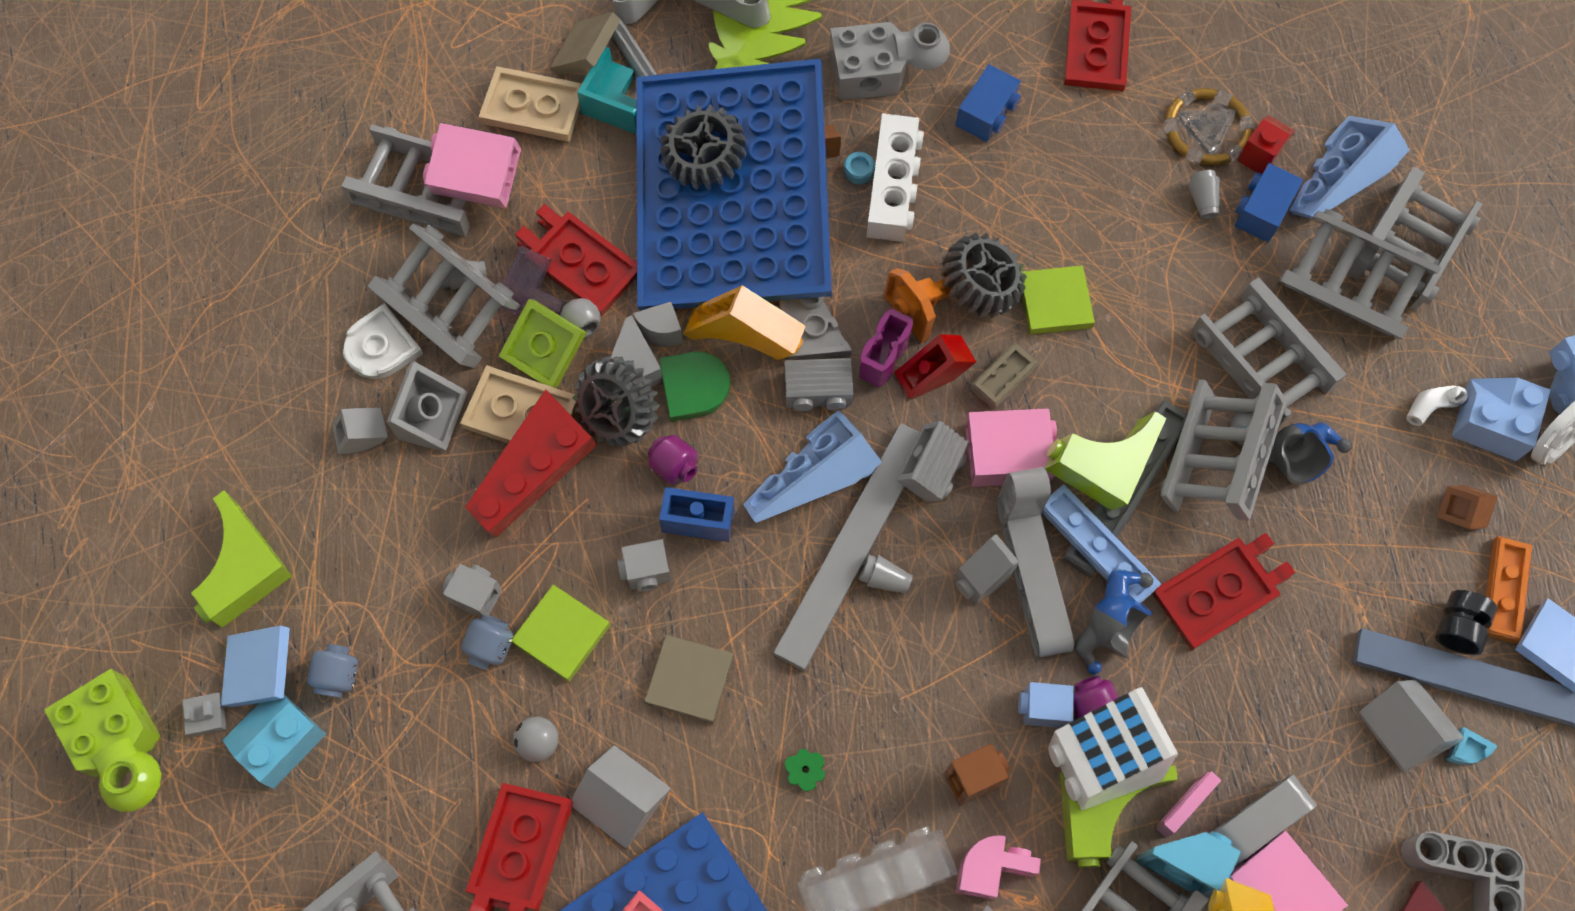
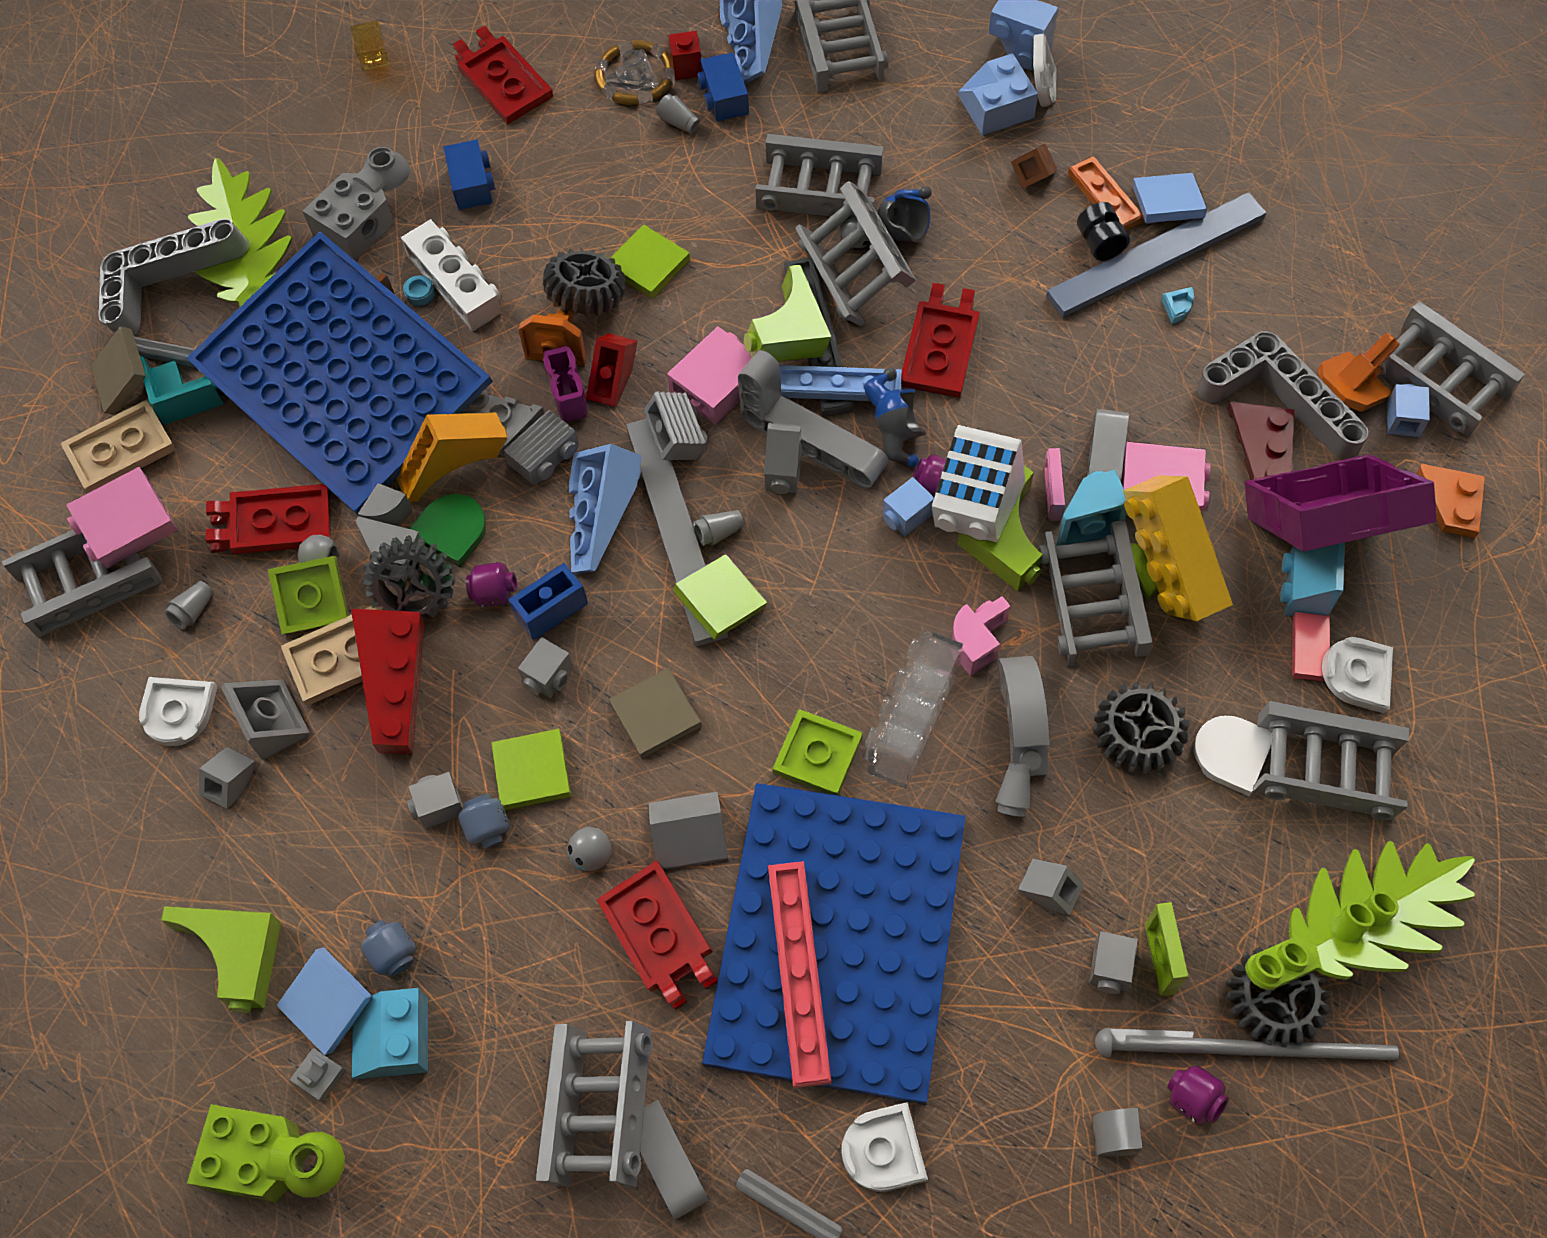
camera: 40 degrees left, 5 degrees down
(416, 308) = (213, 651): light grey fence -> none
(526, 278) = (247, 568): tile -> none
(711, 156) = (312, 351): dark grey gear -> none
(773, 835) = (817, 753): none -> lime tile
(804, 759) = (795, 685): green plant -> none
(826, 635) = (719, 596): none -> lime tile
(977, 774) = (909, 585): dark orange brick -> none
(1004, 376) = (664, 335): dark tan plate -> none
(1360, 305) = (847, 103): light grey fence -> none
(1409, 724) = (1131, 320): light grey slope -> none
(1435, 398) = (950, 119): white arm -> none

